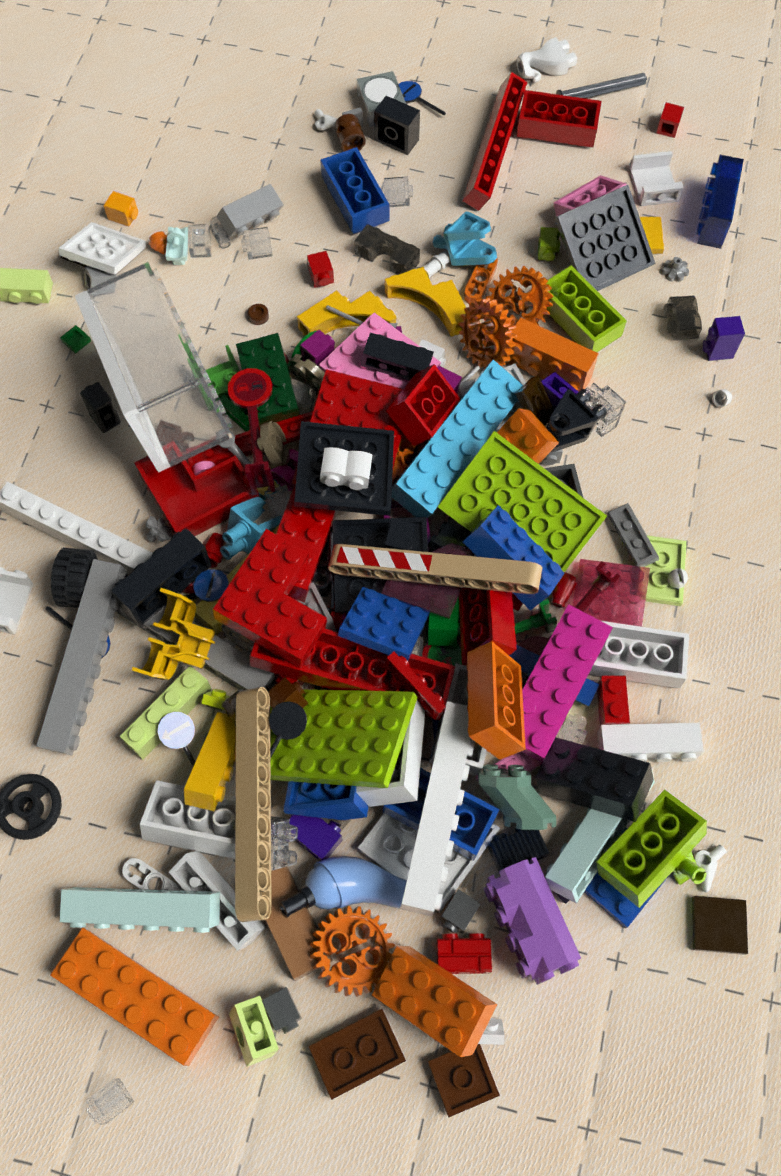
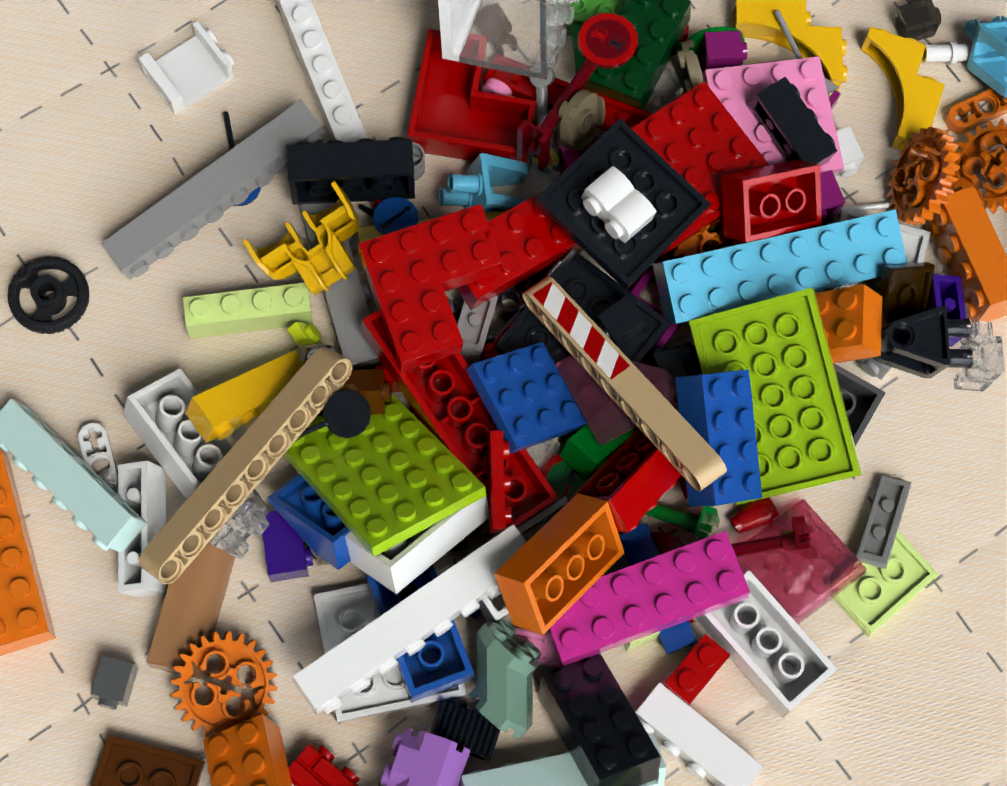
camera: 35 degrees right, 5 degrees up
(70, 575) = (269, 96): black tyre -> none
(158, 530) = (397, 117): light grey plant -> none
(176, 732) = (239, 337): piece -> none
(213, 549) = (429, 182): red cone -> none
(253, 1031) = (71, 676): yellowish green brick -> none
(345, 882) = (266, 613): light blue animal -> none
(459, 912) = (354, 739): dark grey brick -> none
(573, 729) = (628, 664): clear brick -> none
(673, 578) = (881, 602): white hinge -> none

